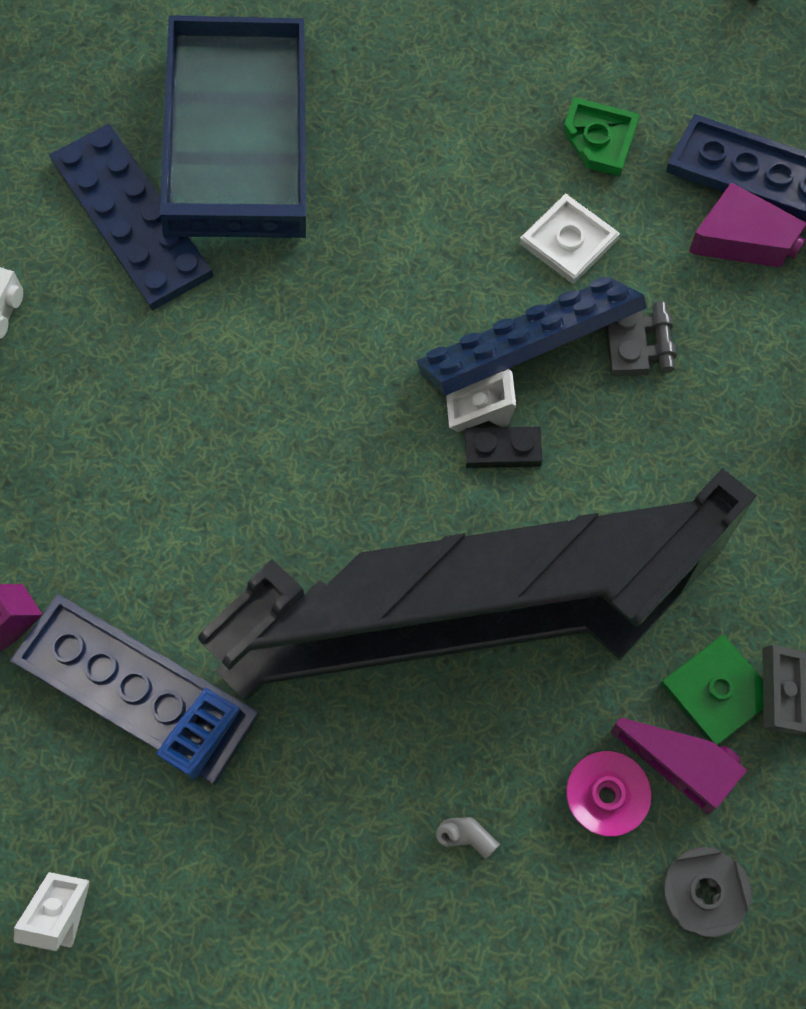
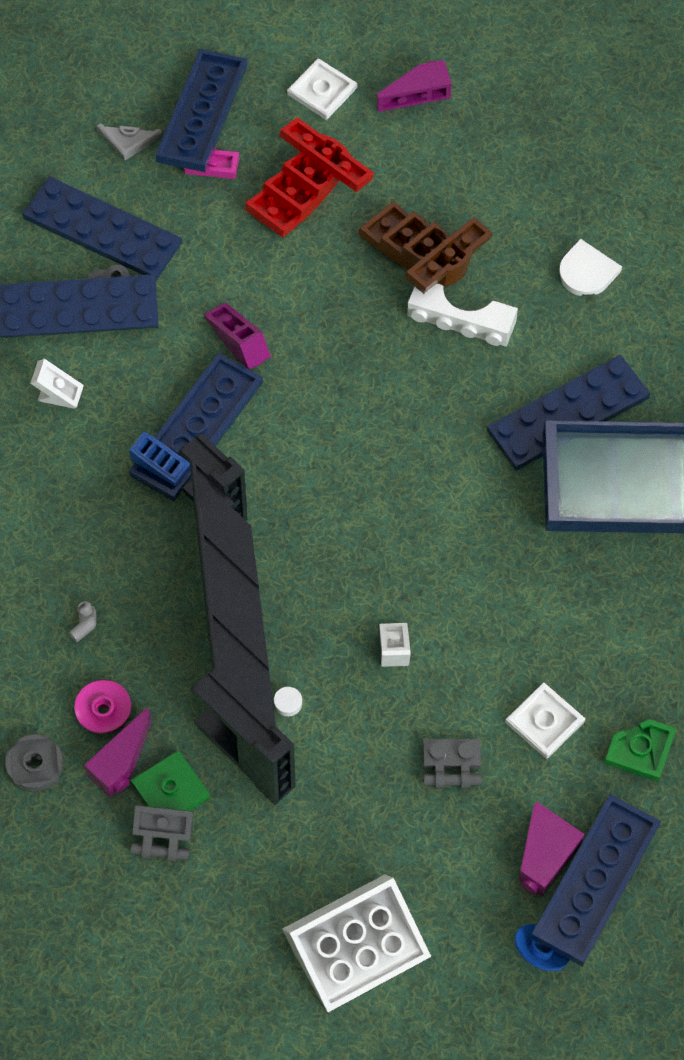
camera: 90 degrees right, 5 degrees down
(503, 447) = (363, 661): black plate -> none
(529, 335) = (450, 678): dark blue plate -> none

